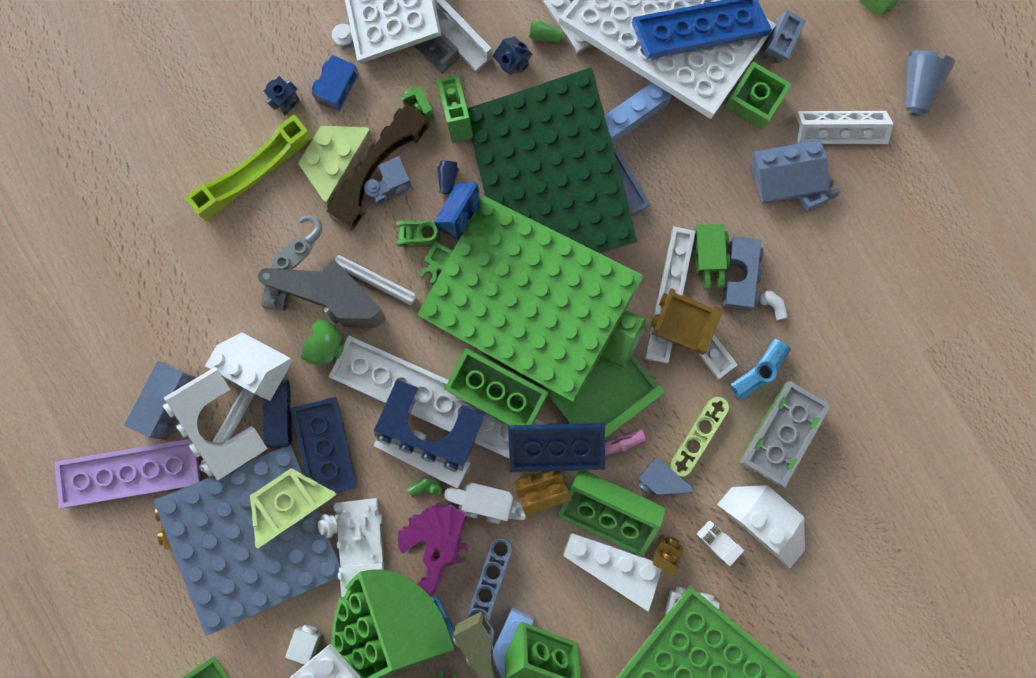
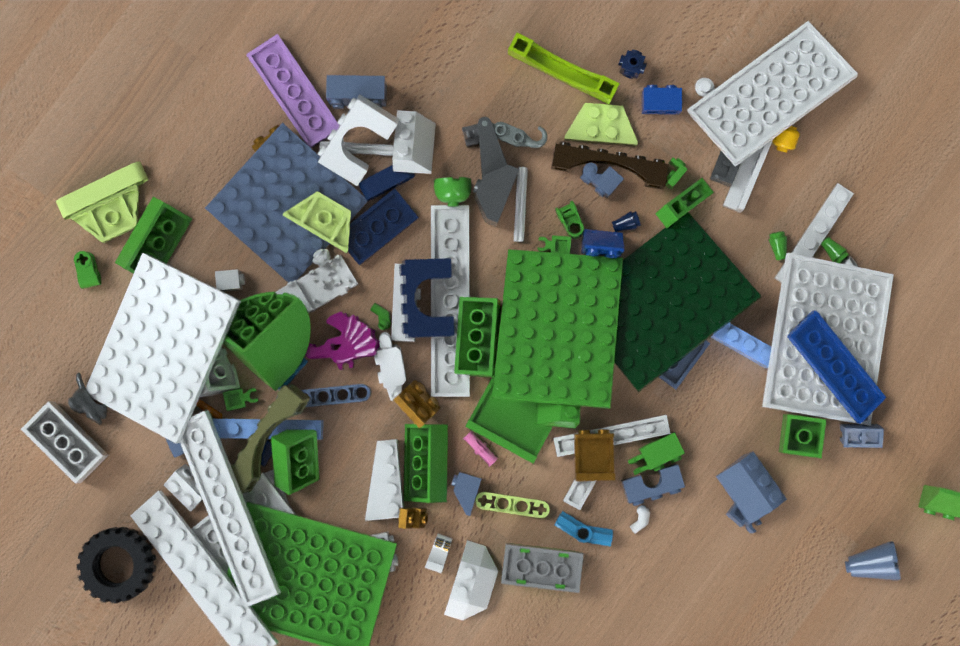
camera: 65 degrees right, 5 degrees up
(512, 55) = (747, 229): dark blue brick -> none
(557, 447) = (454, 400): dark blue plate -> none
(844, 128) = (807, 516): white fence -> none

